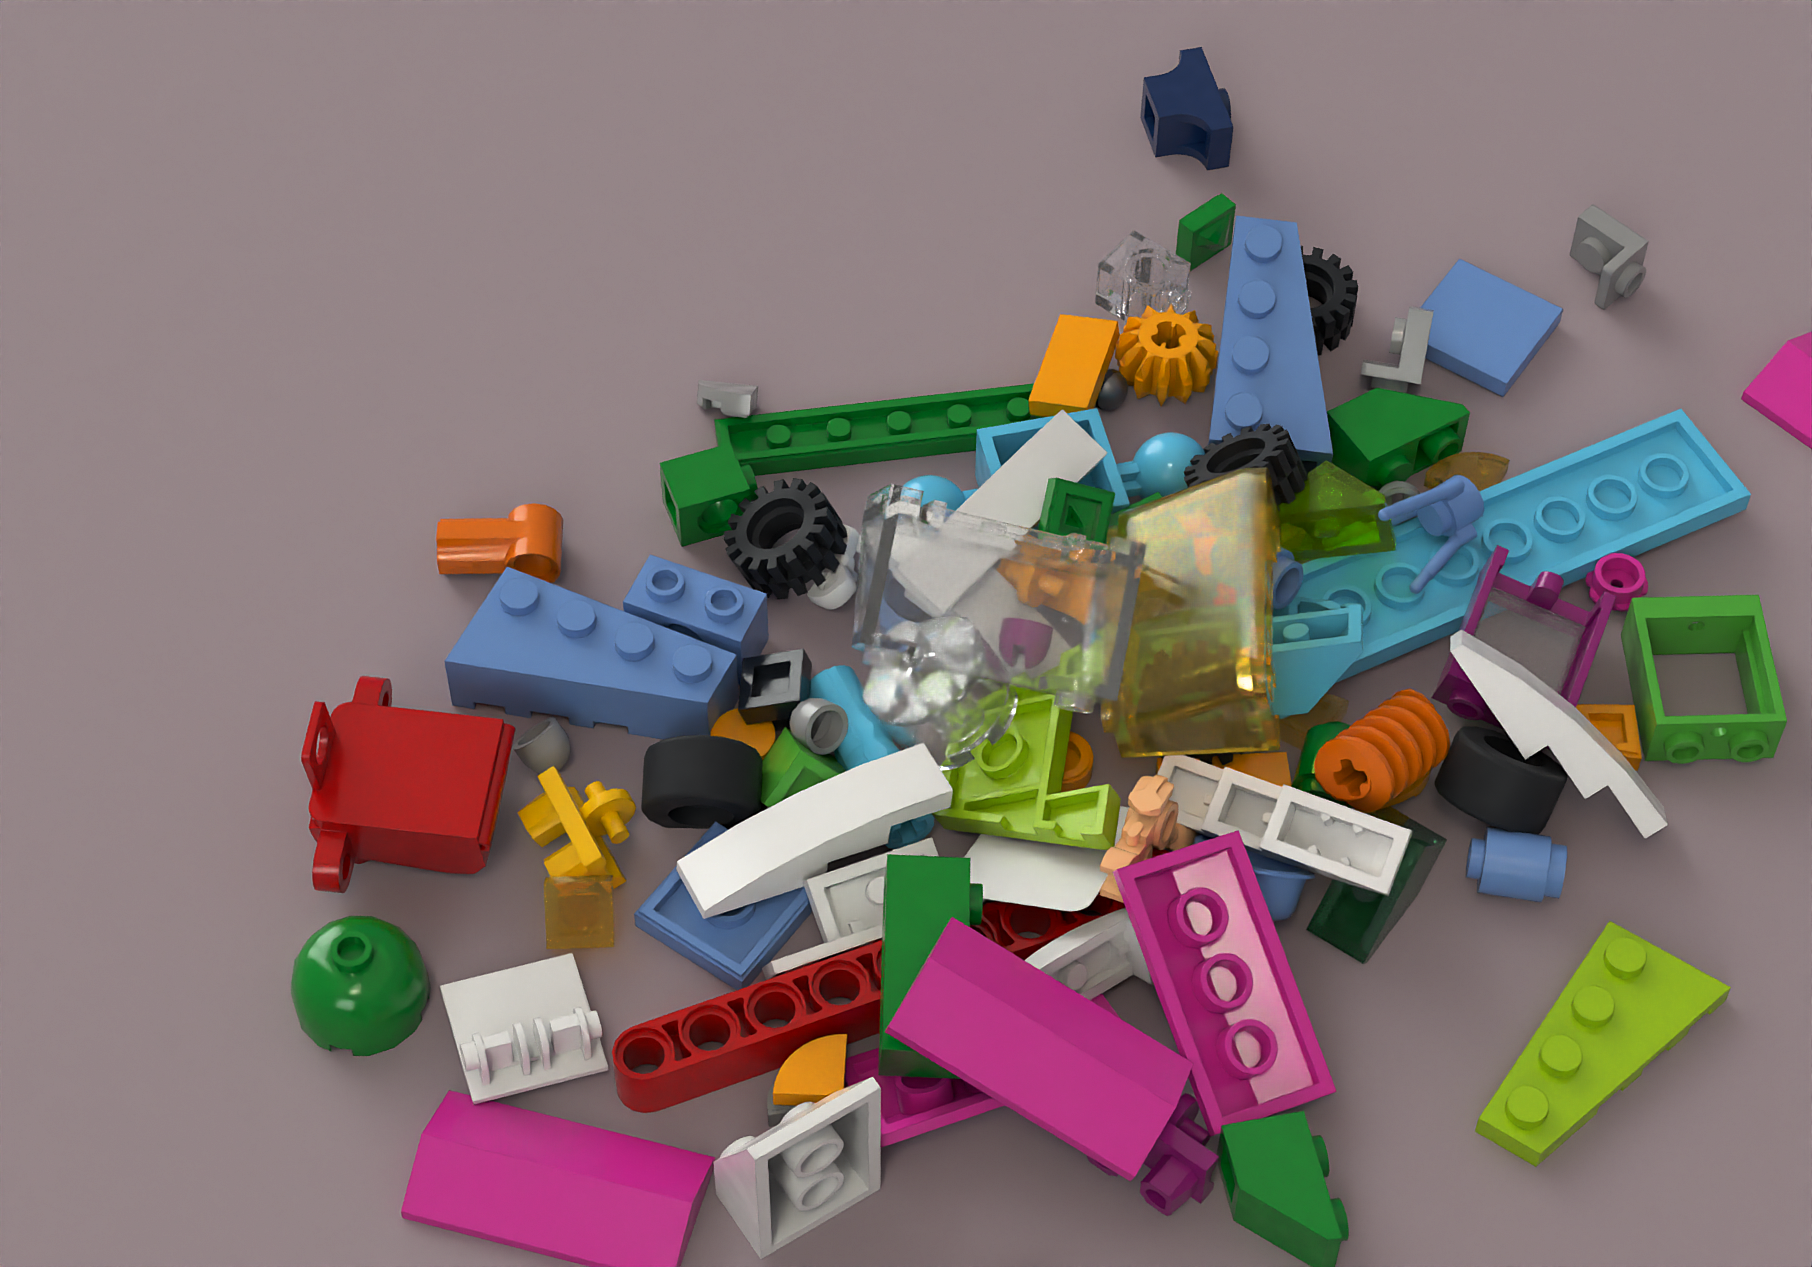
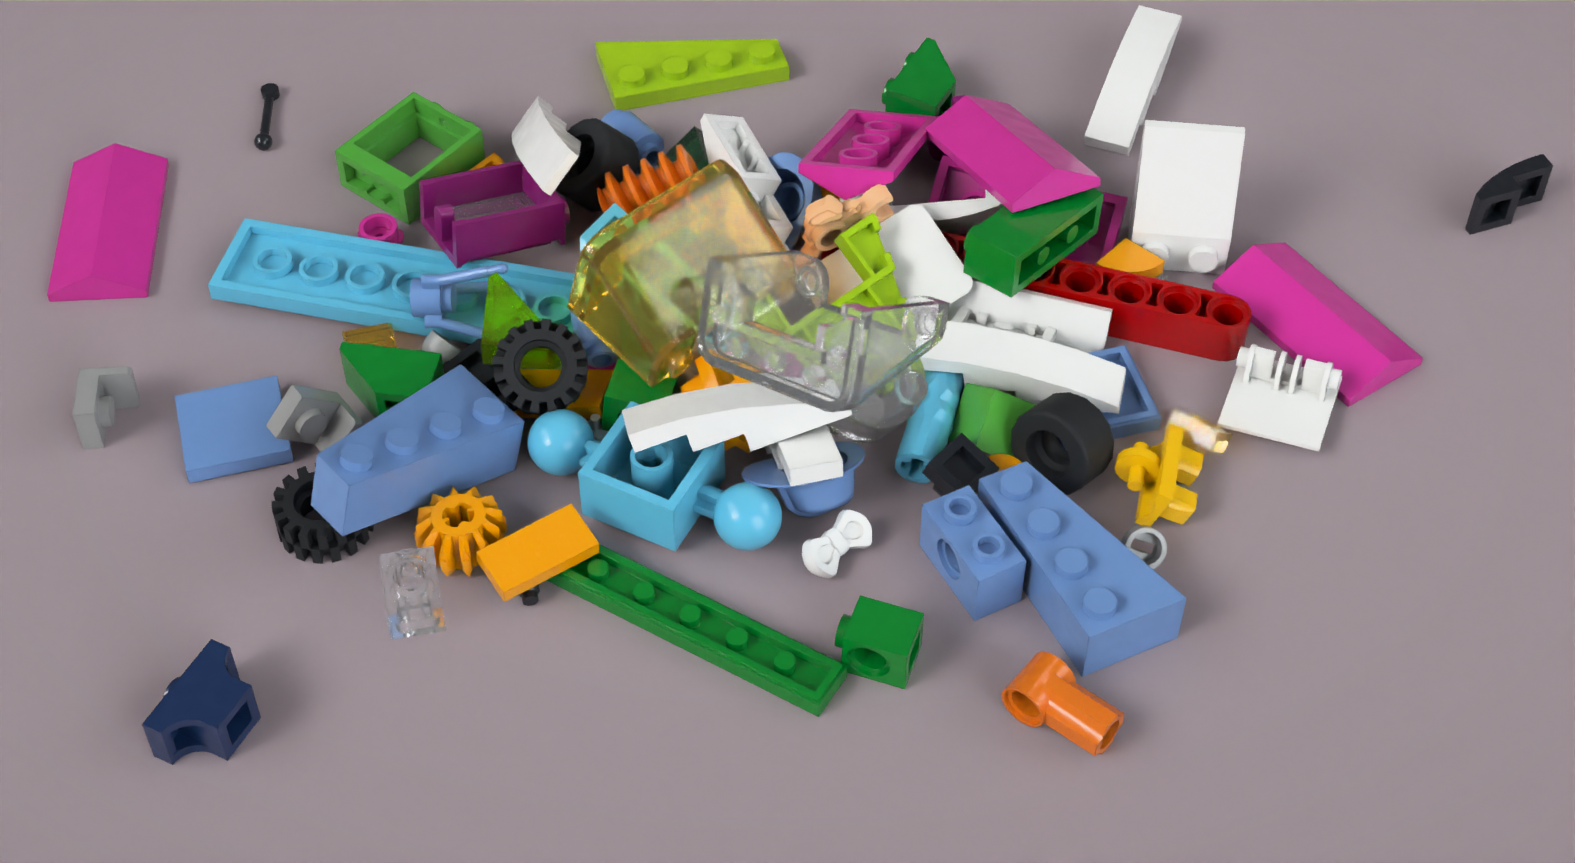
camera: 140 degrees left, 5 degrees down
(359, 985) = (1372, 479): green cylinder -> none
(401, 786) = (1265, 540): red piece -> none
(732, 398) = (792, 711): light grey tile -> none
(773, 517) = (876, 537): black tyre -> none
(819, 725) = (961, 417): light grey hinge -> none
(1076, 509) = (696, 370): green tile -> none
(1206, 230) = (322, 600): green tile -> none

